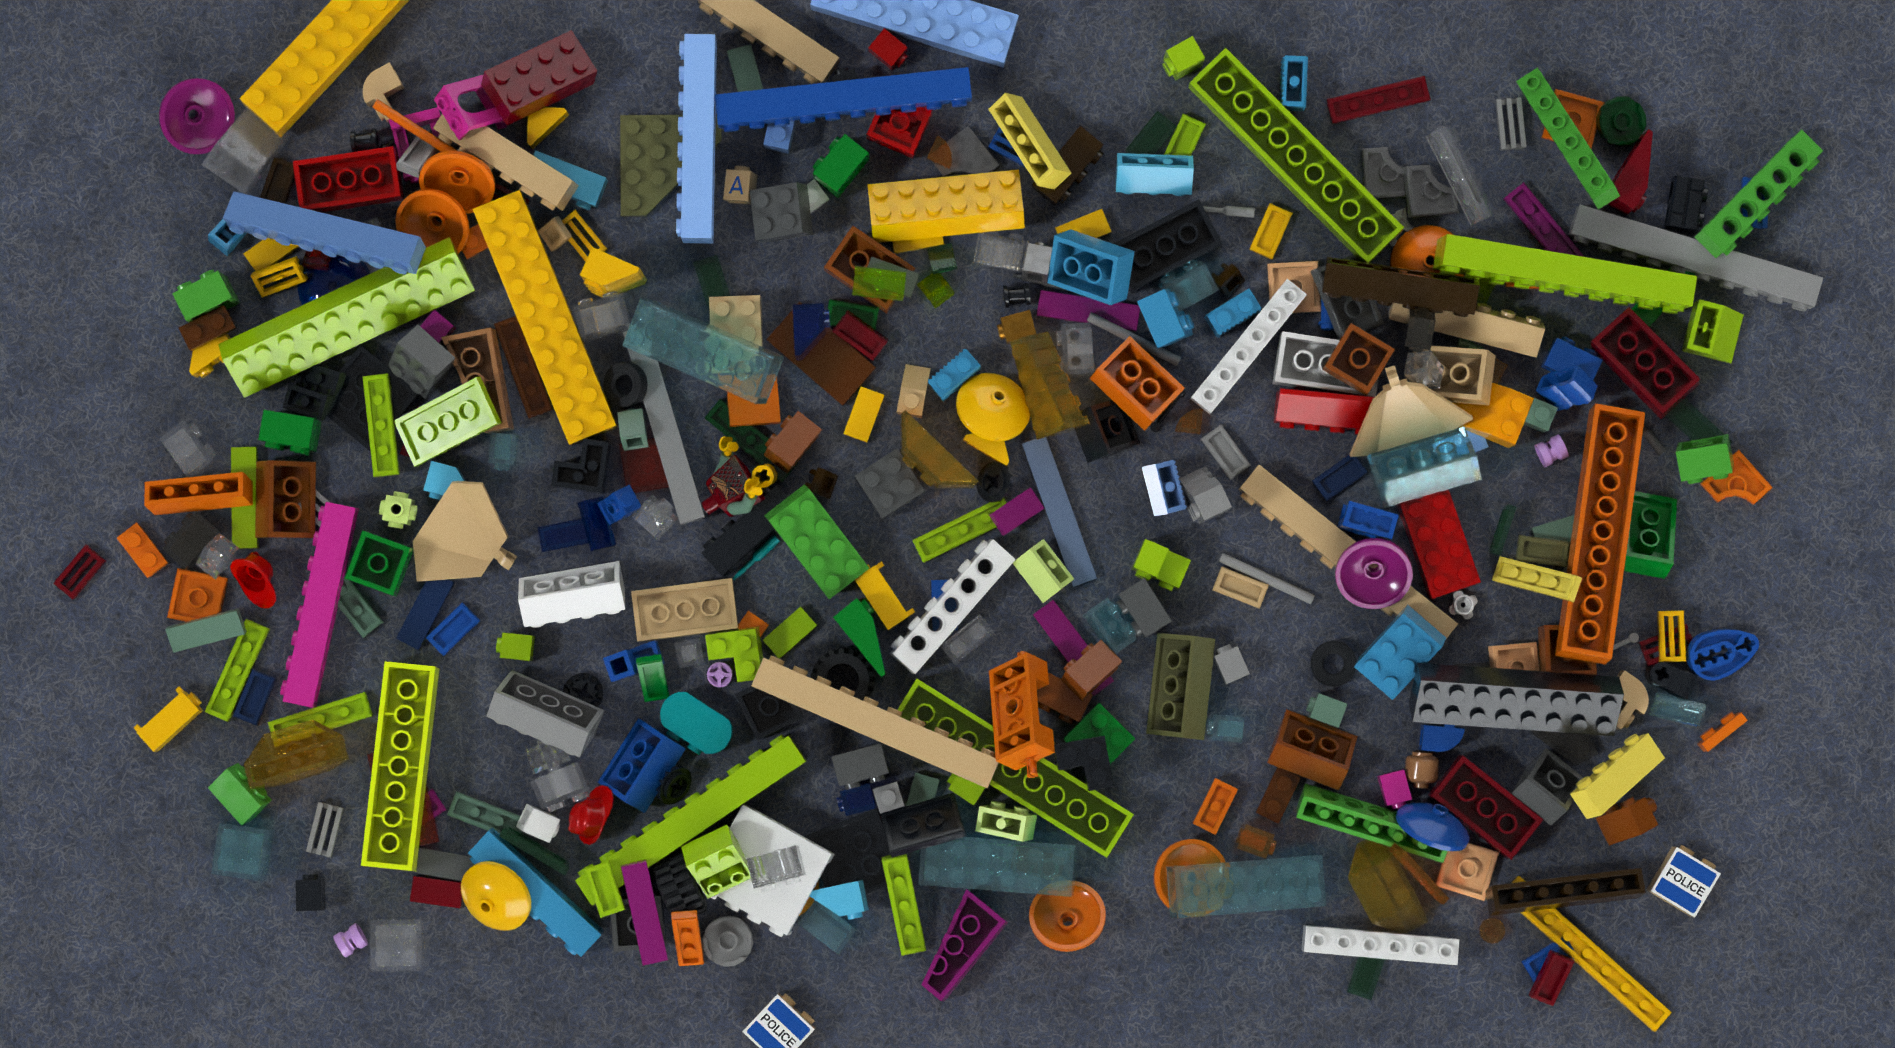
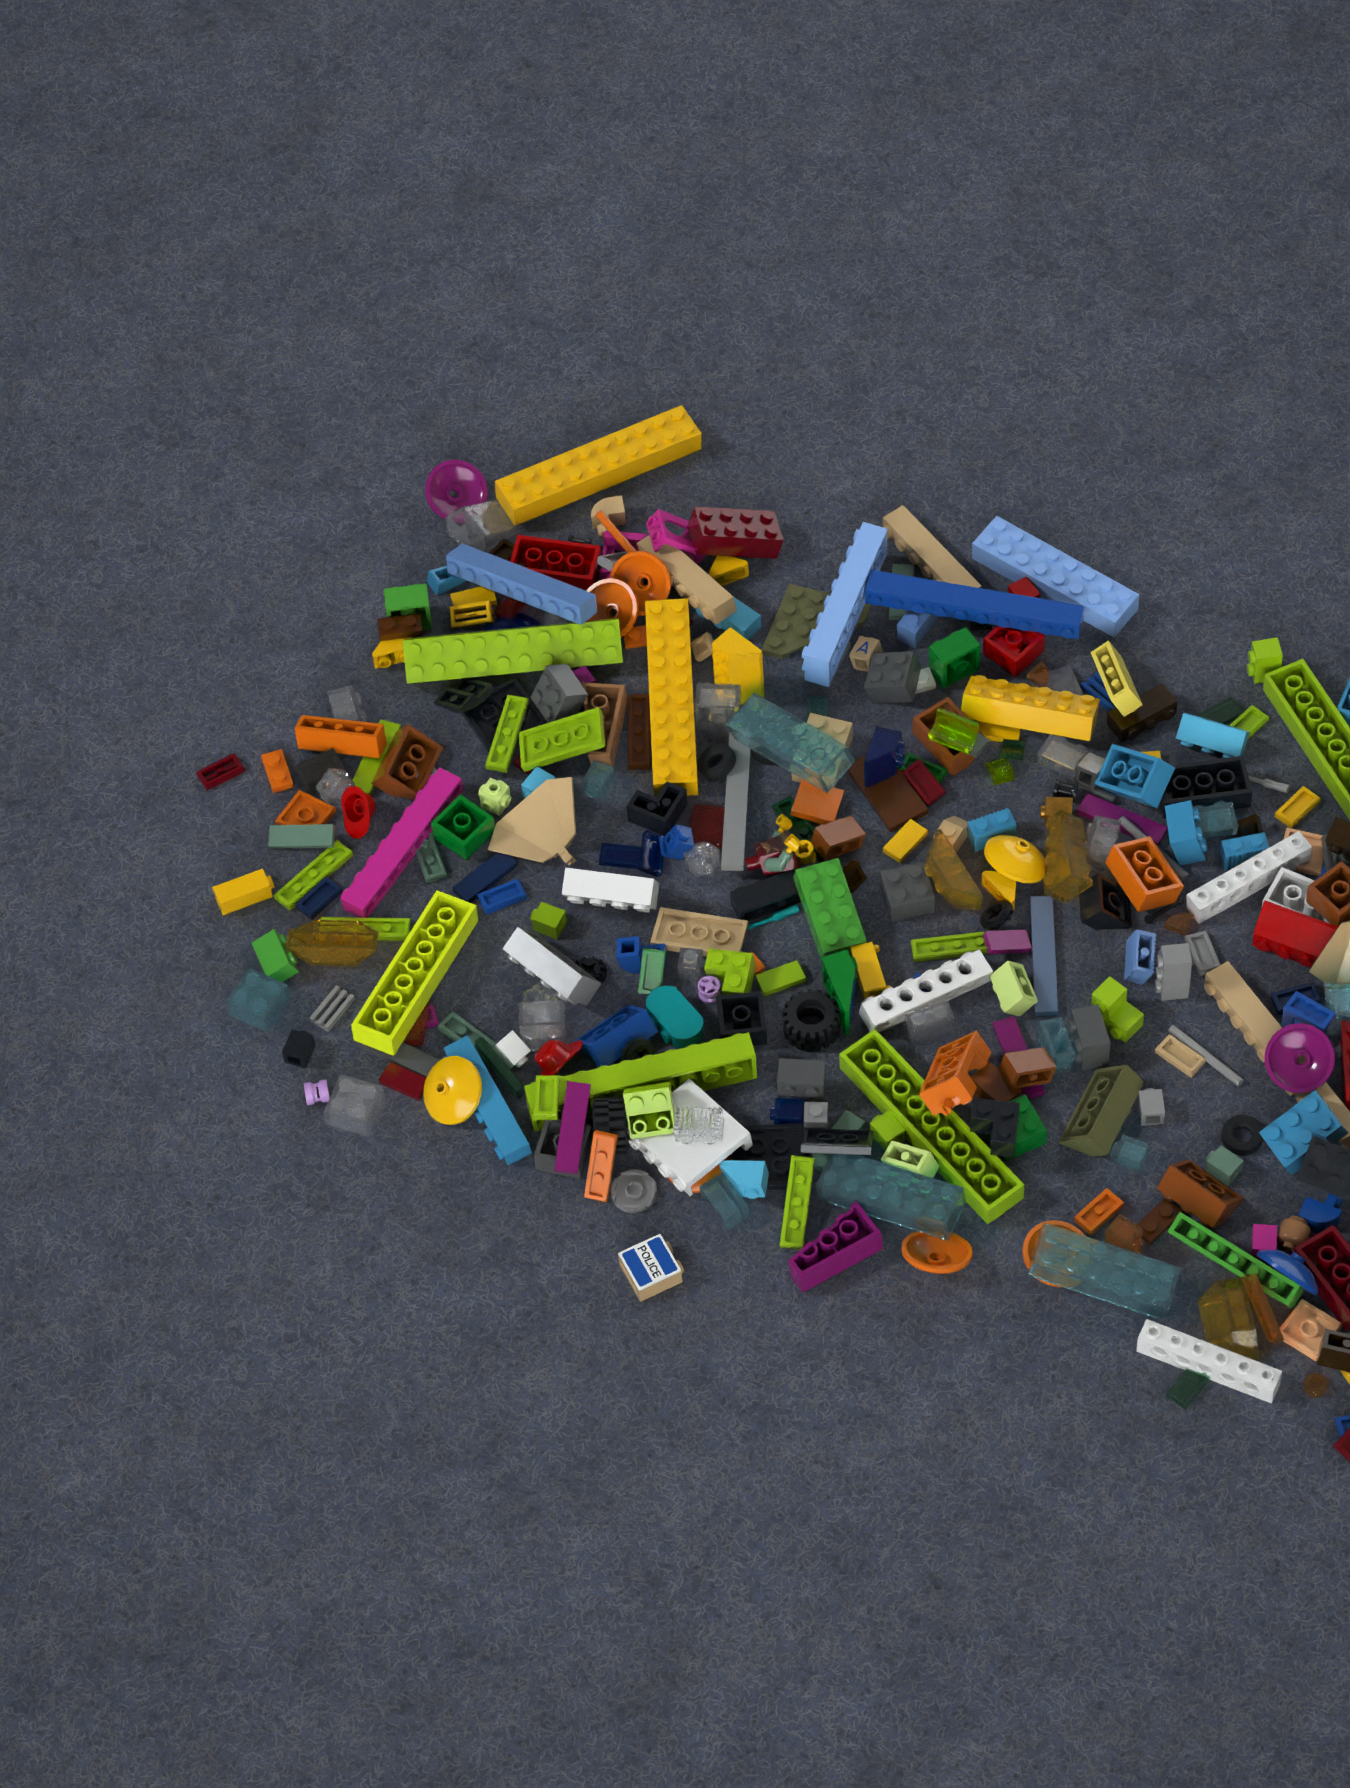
camera: 25 degrees right, 30 degrees down
(289, 430) = (433, 714): green brick -> none
(632, 429) = (709, 793): sand green brick -> none
(875, 722) = (826, 1044): tan brick -> none

